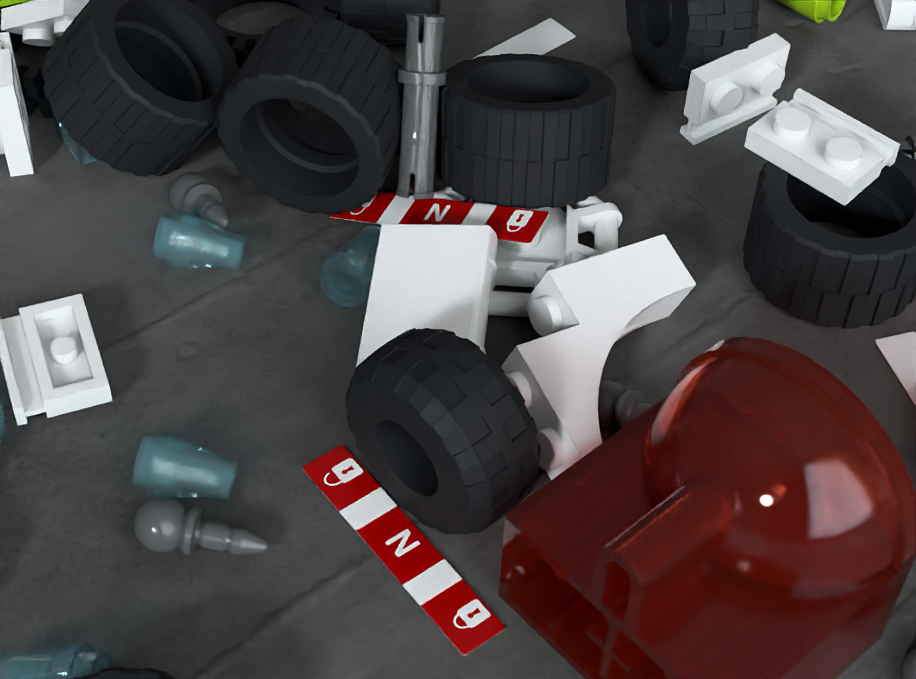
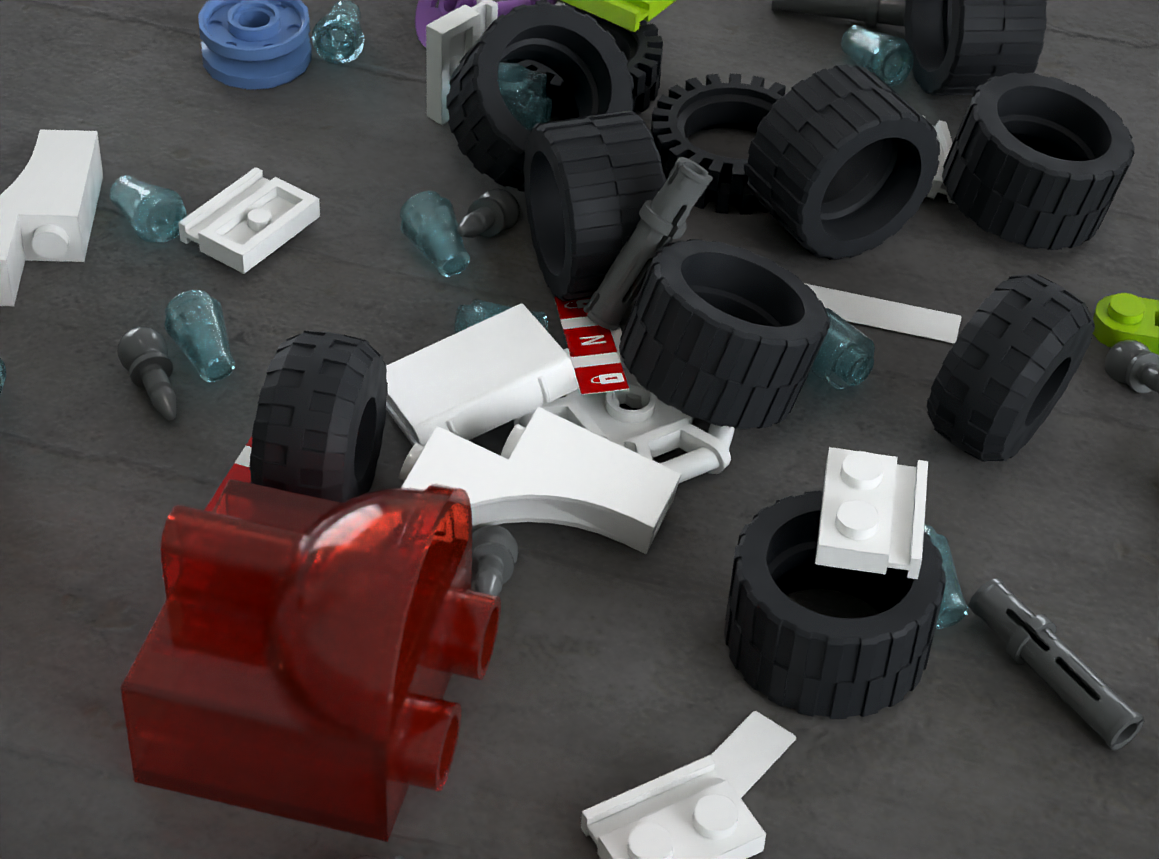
camera: 55 degrees right, 5 degrees down
(734, 88) = (969, 459): white plate -> none

